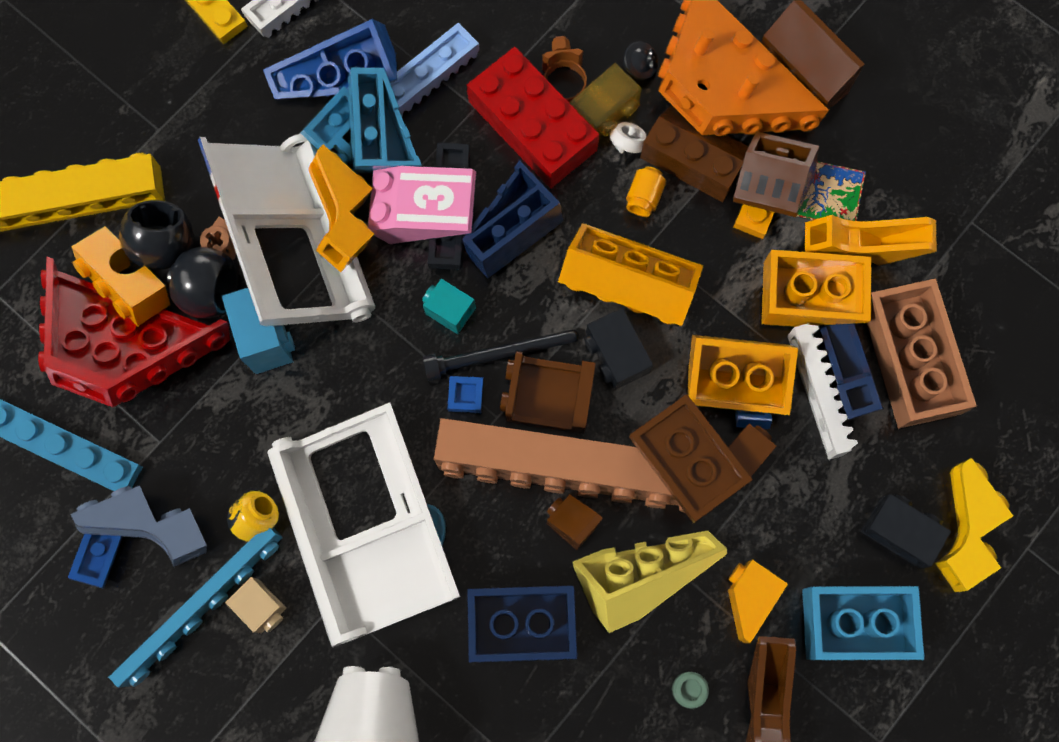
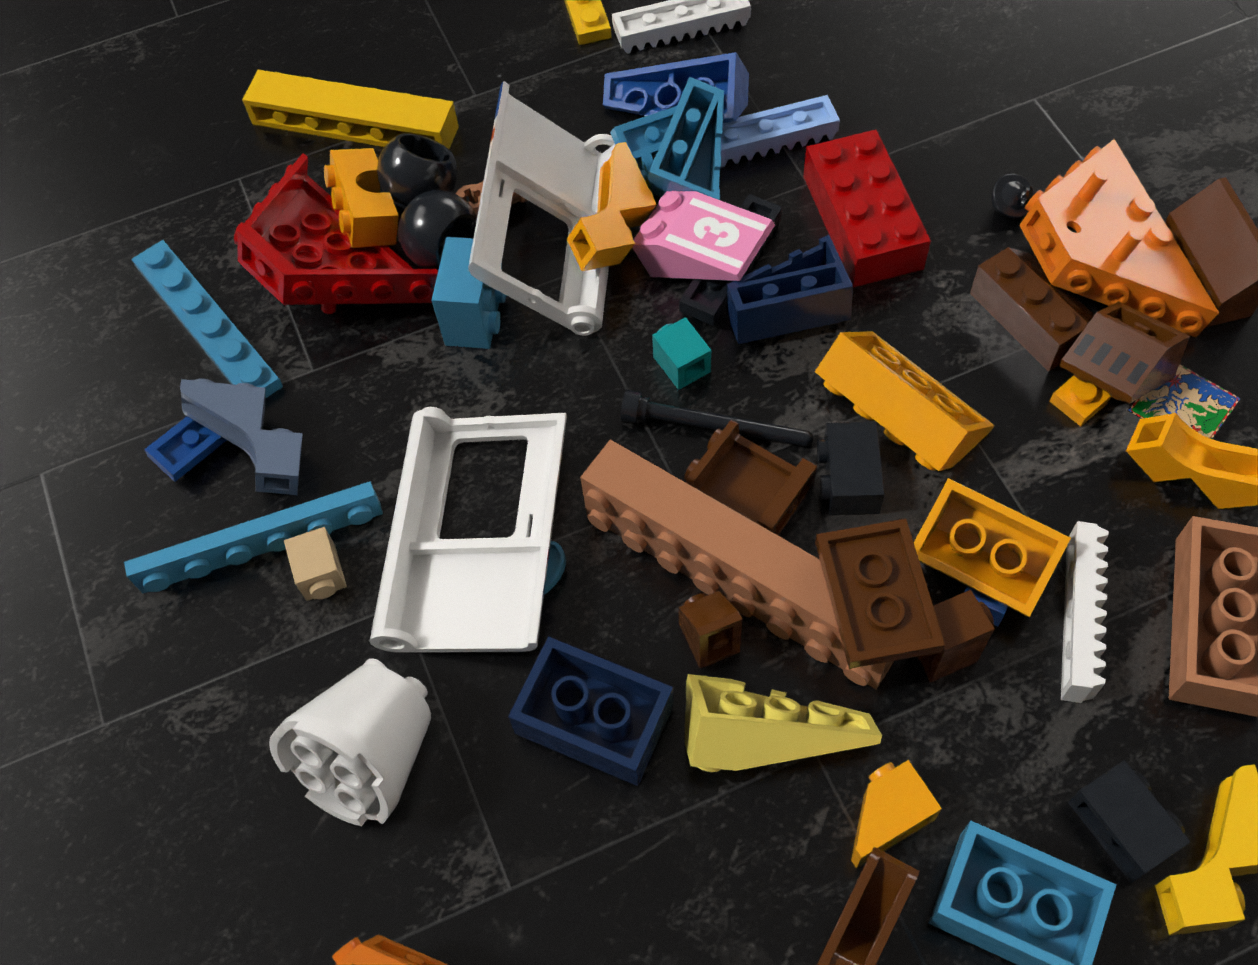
camera: 30 degrees right, 15 degrees down
(252, 515) = (362, 466): yellow head -> none
(465, 394) = (656, 444): blue plate -> none
(564, 56) = (929, 165): dark orange piece -> none
(608, 100) = (958, 219): clear yellow brick -> none
(628, 137) = (962, 263): white hat -> none
(645, 191) = (959, 322): light orange brick -> none
(690, 689) = (761, 890): sand green tile -> none
(815, 289) = (1124, 491): light orange slope -> none
(851, 370) = (1131, 598): dark blue arch -> none

